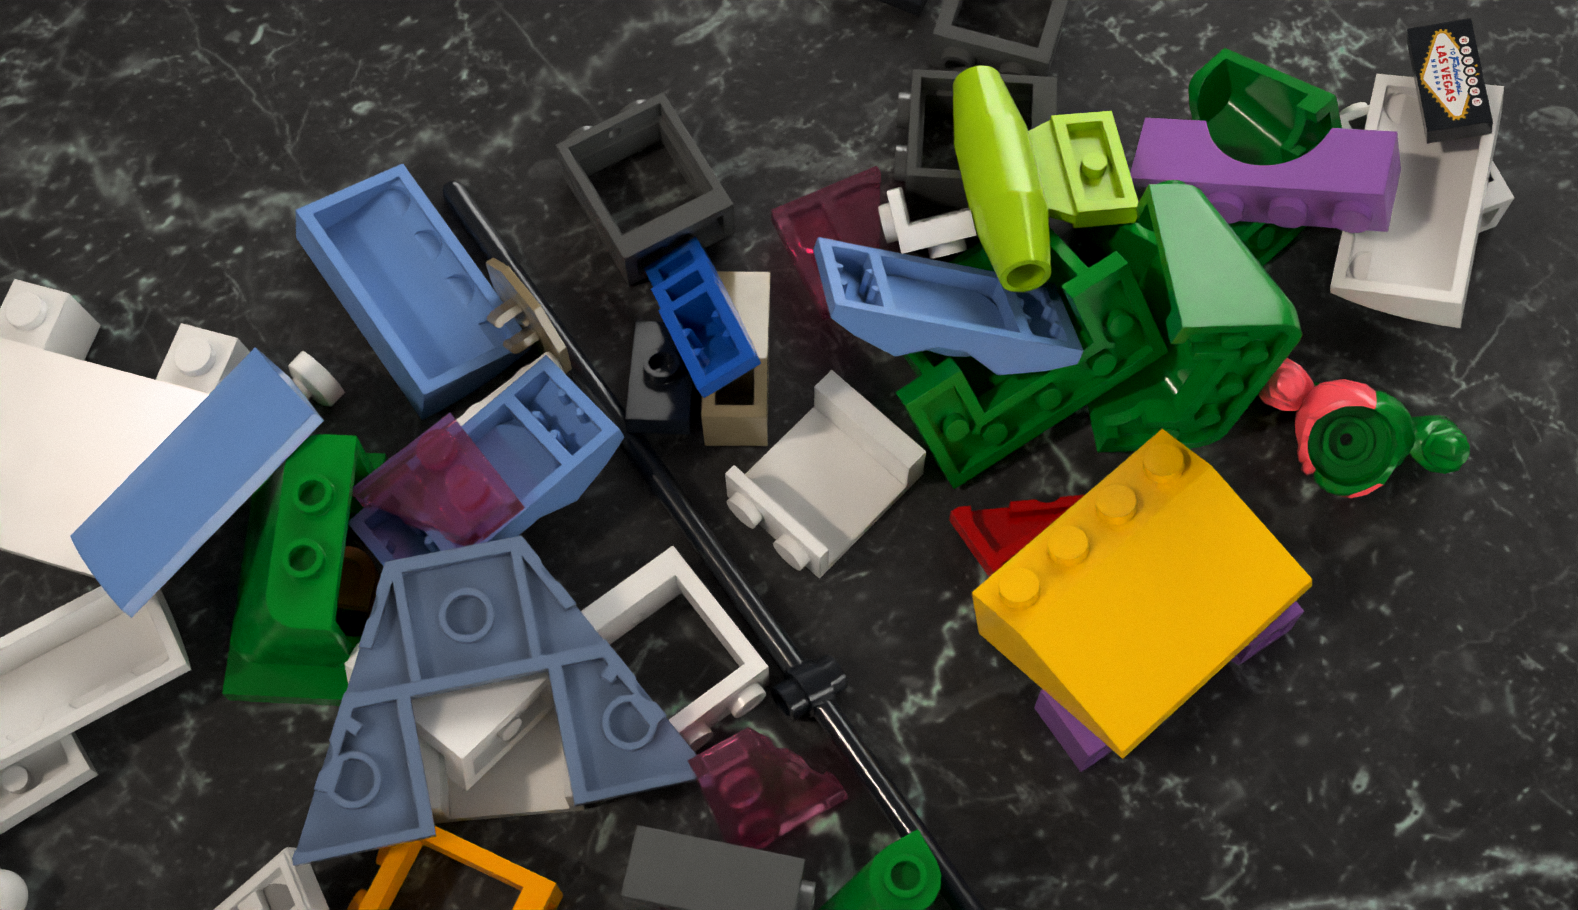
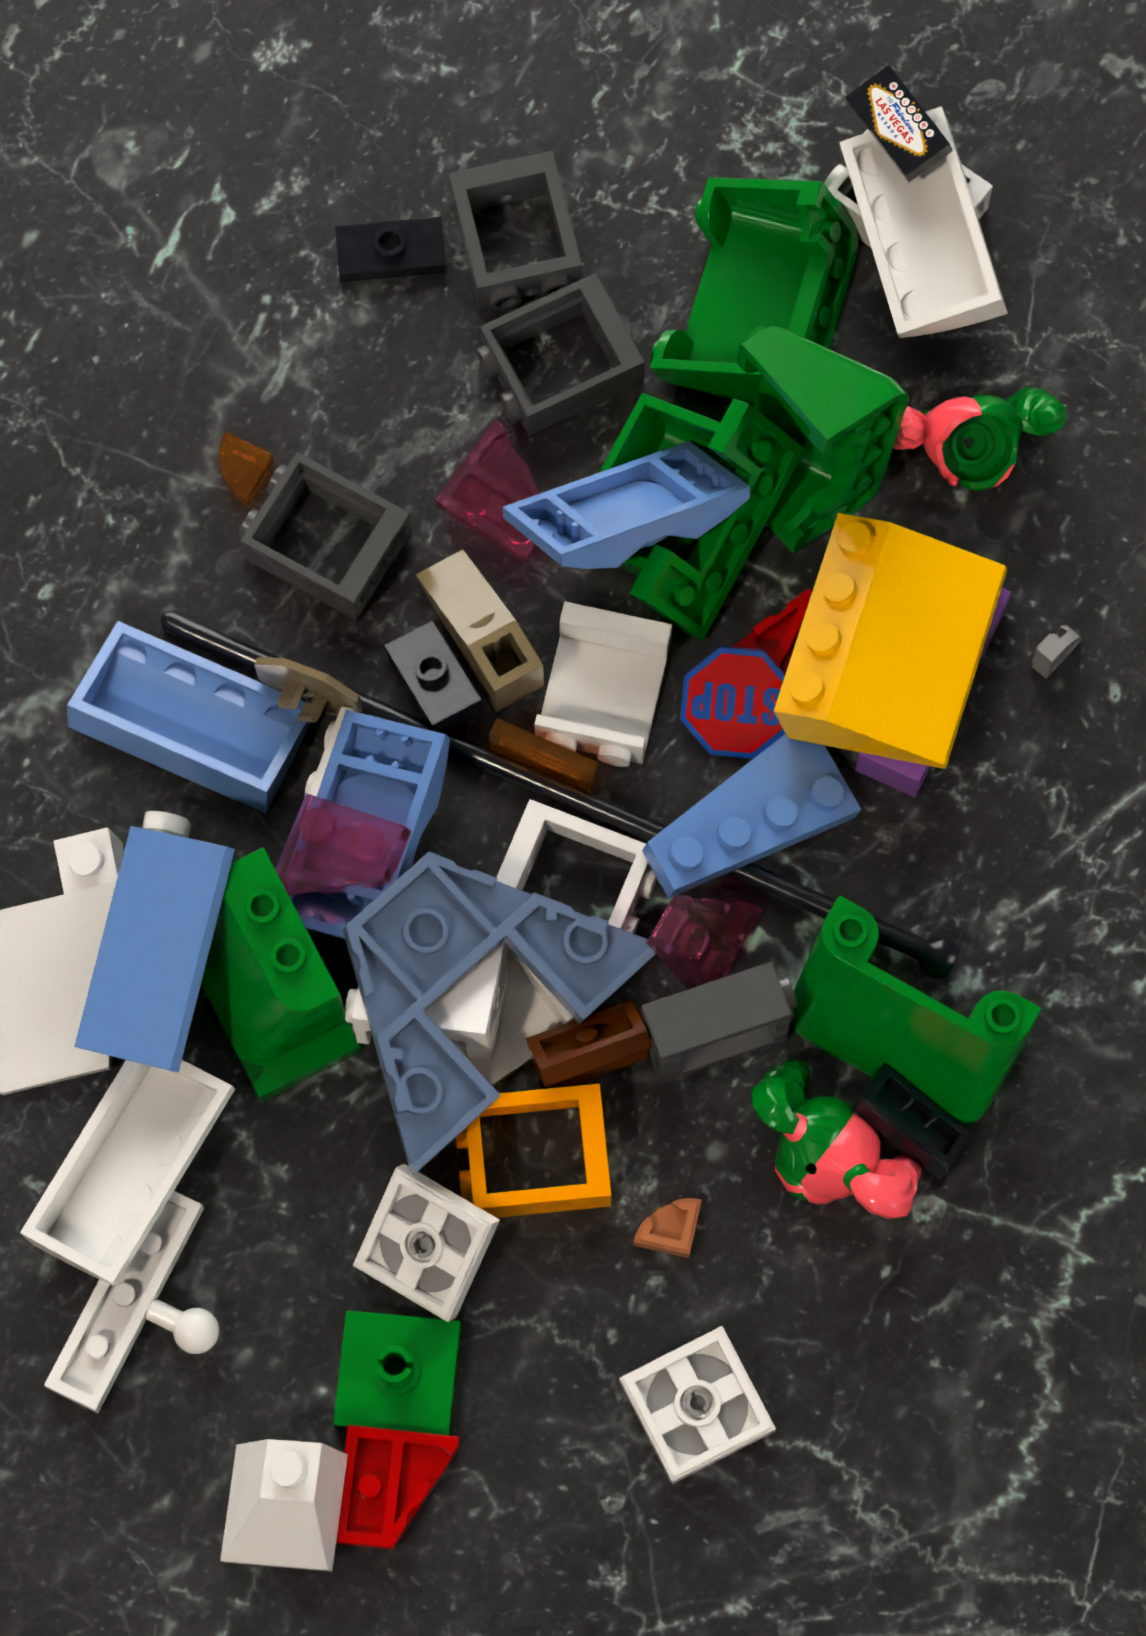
camera: 30 degrees left, 5 degrees up
(566, 838) = (589, 1049): none -> reddish brown panel
(613, 87) = (243, 466): none -> clear orange tile
(701, 317) = (447, 614): blue slope -> none
(719, 513) = (543, 755): none -> clear orange tile
(898, 691) = (759, 810): none -> medium blue wing
(939, 561) = (733, 701): none -> piece
(940, 233) = (578, 449): white bracket -> none
(1022, 177) = (627, 372): lime plate -> none
(1318, 700) = (1054, 650): none -> light grey tile
(1338, 184) = (863, 253): medium lavender arch -> none

